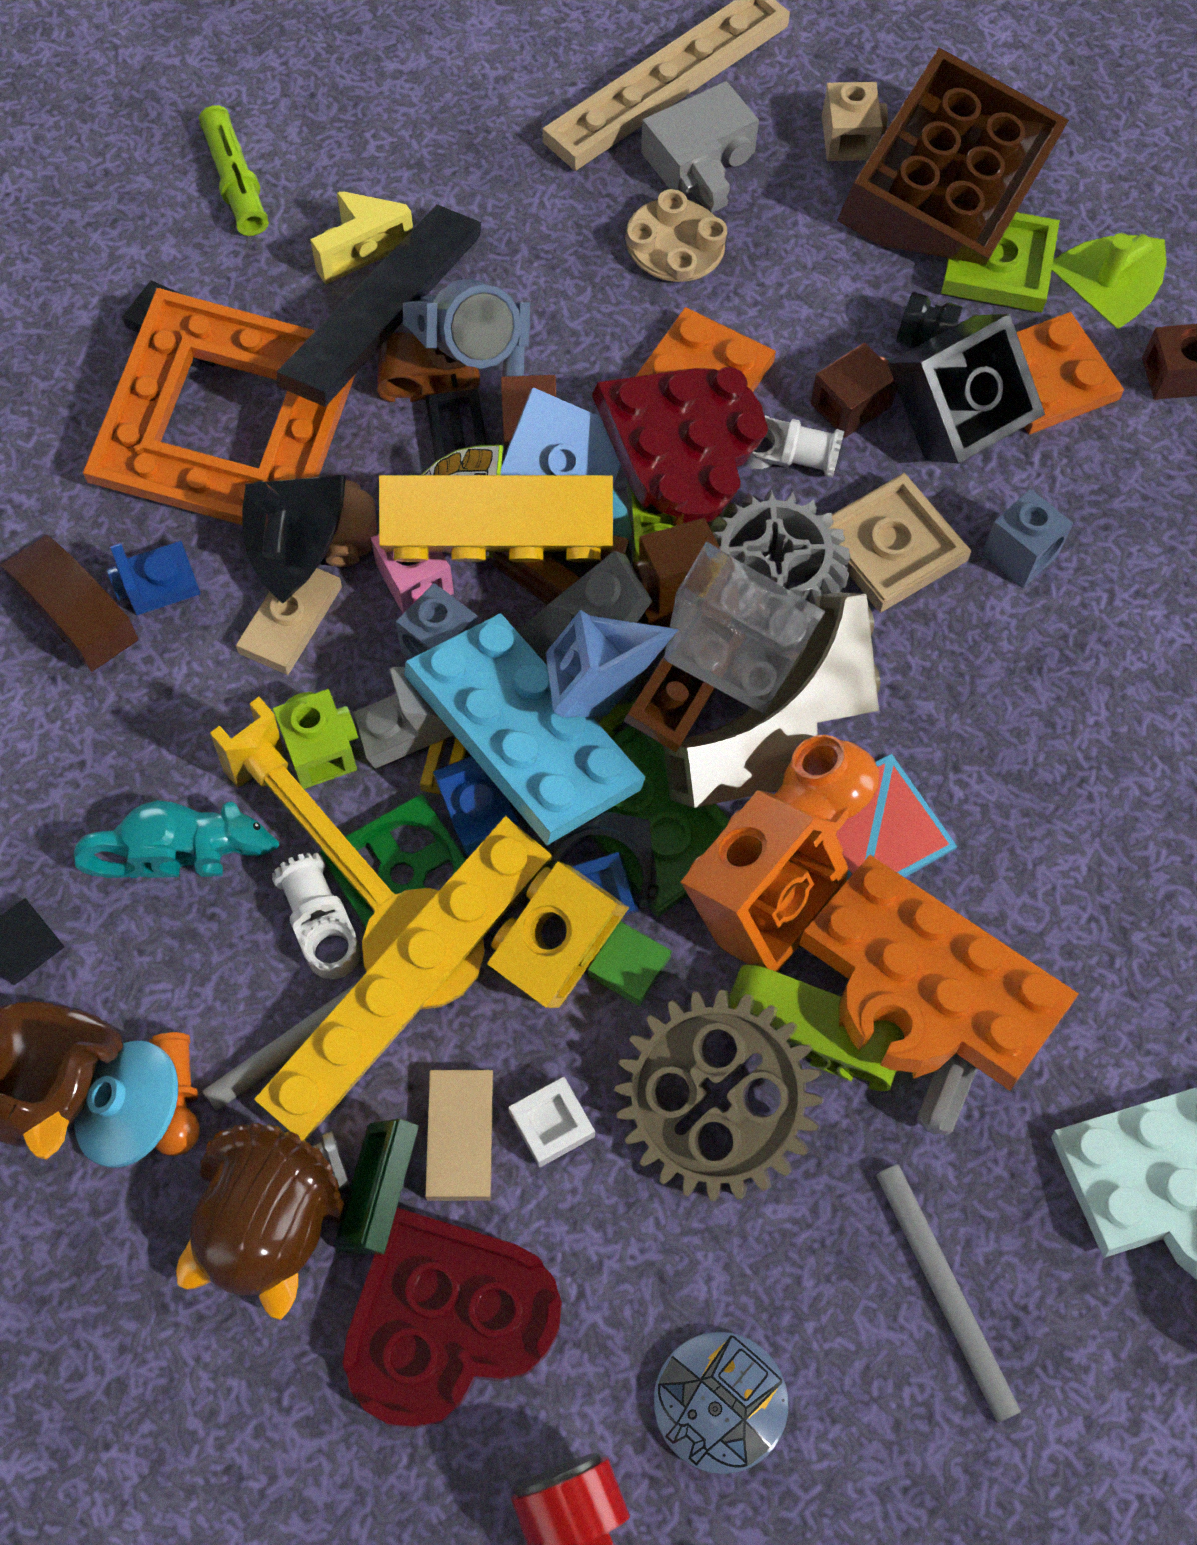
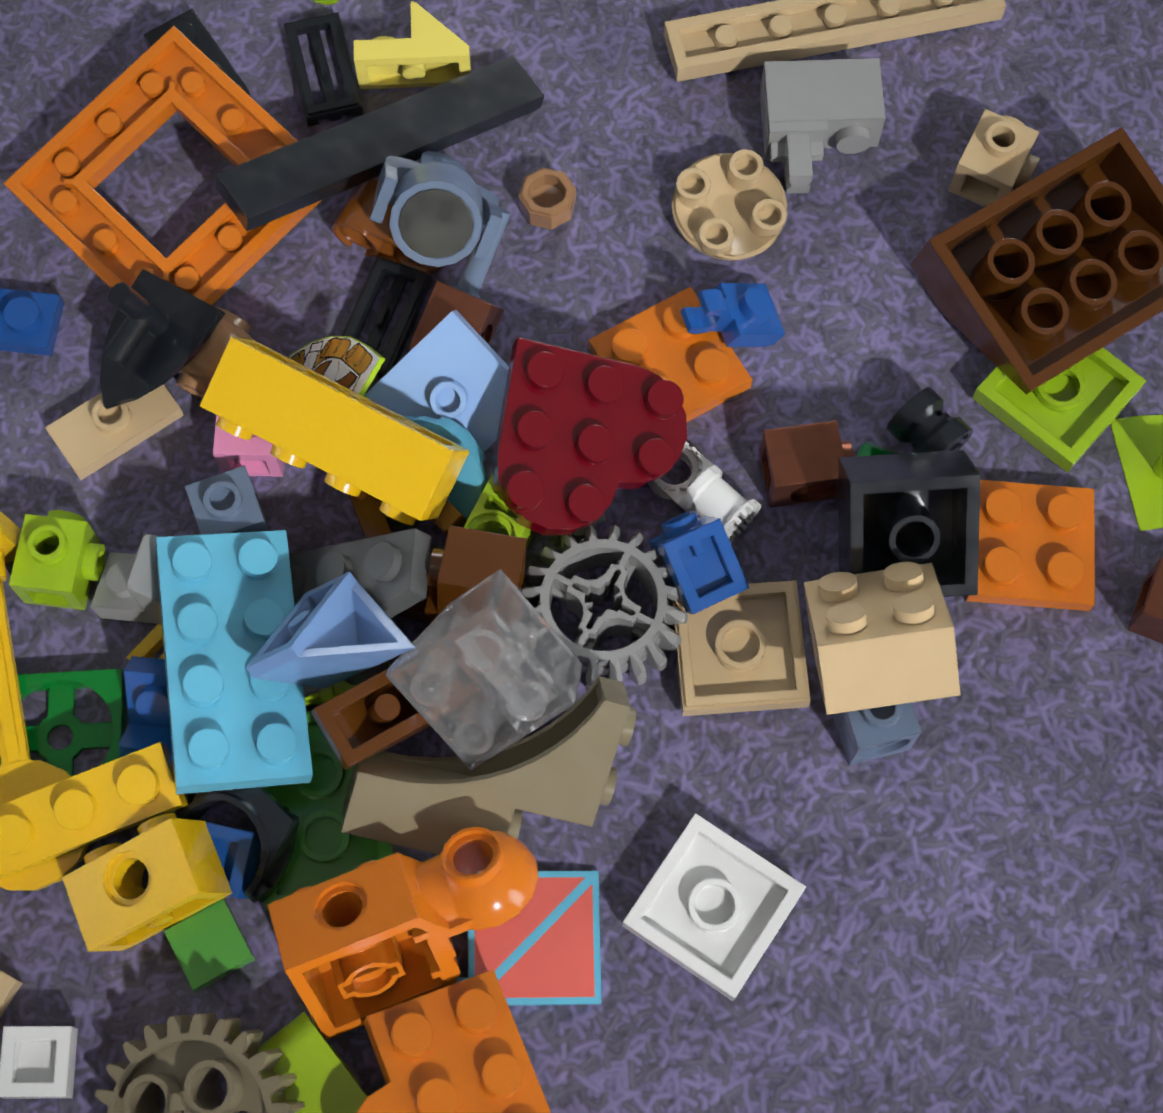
camera: 30 degrees right, 5 degrees up
(311, 306) = (332, 107): none -> black tile
(535, 287) = (547, 198): none -> medium nougat tile
(737, 306) = (739, 311): none -> blue plate
(831, 484) = (699, 560): none -> blue bracket
(996, 731) = (713, 906): none -> white plate
(1006, 466) = (882, 638): none -> tan brick

